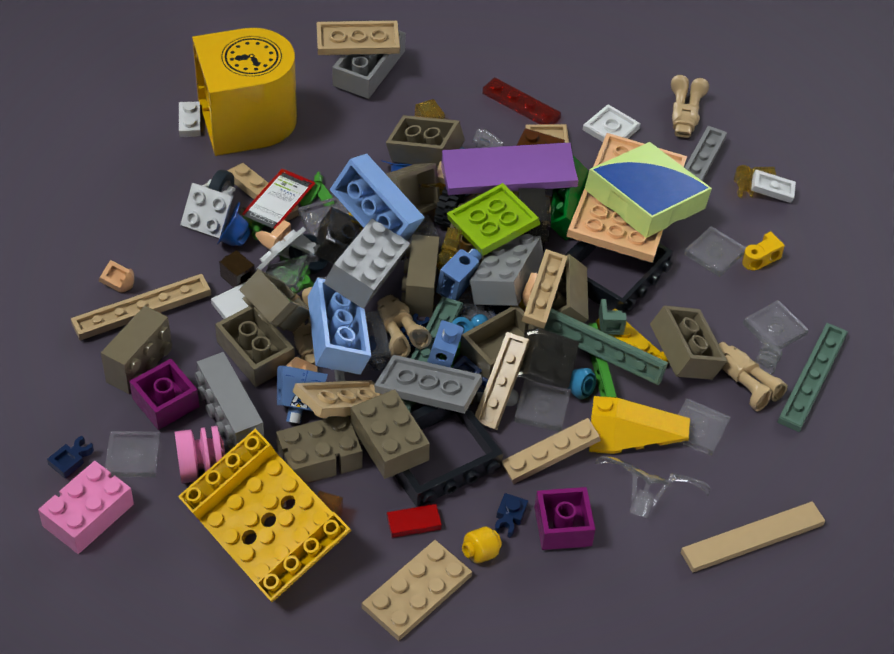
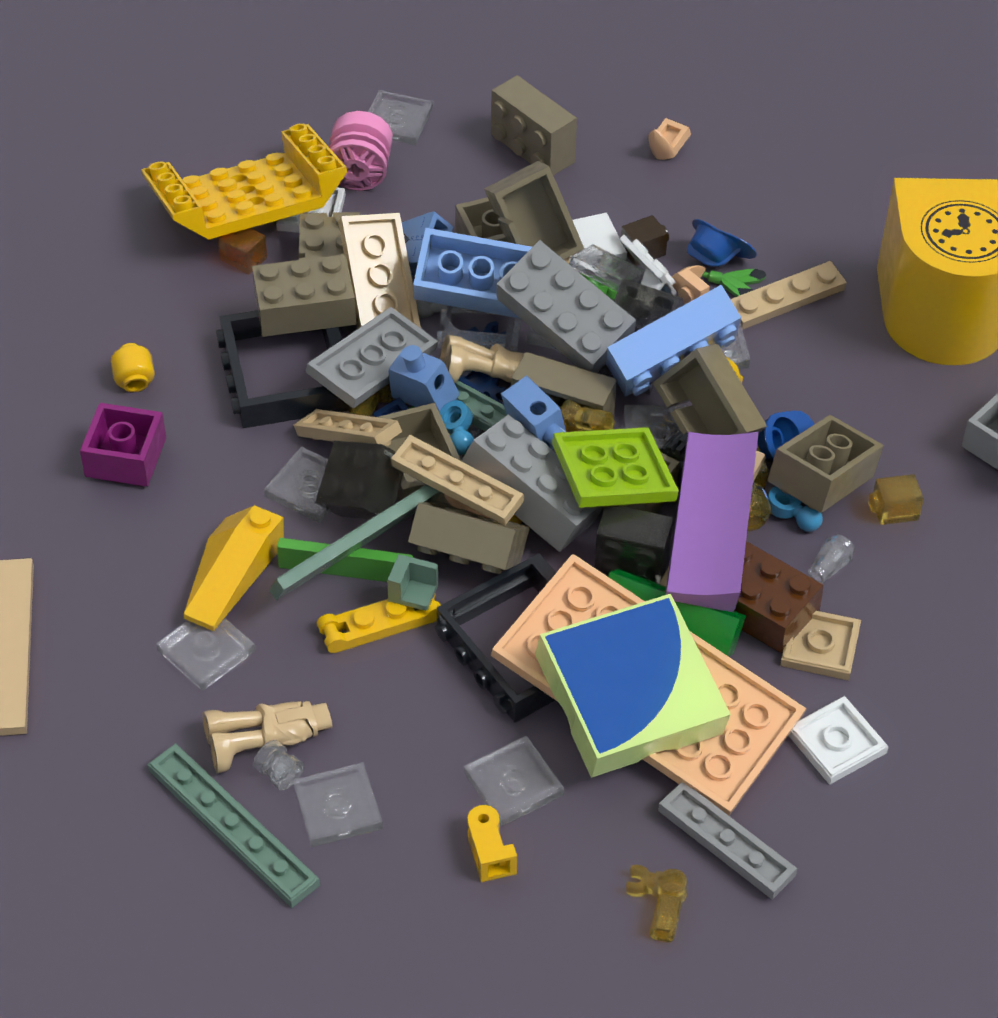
camera: 110 degrees right, 0 degrees up
(68, 459) = (412, 69): dark blue plate -> none
(86, 507) = (332, 68): bright pink piece -> none
(123, 311) = (614, 154): tan plate -> none
(164, 394) = (462, 142): magenta brick -> none
(210, 204) = (782, 235): white plate -> none
(226, 400) = (417, 182): light grey brick -> none
(278, 198) = (761, 297): sticker -> none
(318, 189) = (777, 352): bright green piece -> none
(414, 520) = (201, 325): red tile -> none
(416, 590) = (110, 306): tan plate -> none
(510, 513) = (176, 414): dark blue plate -> none
(521, 102) = (917, 633): clear red plate -> none
(550, 450) = (230, 465): tan plate -> none
(582, 383) = (325, 526): dark azure cone -> none
(643, 501) = (98, 497): clear plant -> none
(684, 115) = (837, 850): tan piece -> none
(688, 342) = (332, 657): dark tan brick -> none
(773, 186) = (627, 914): white plate -> none

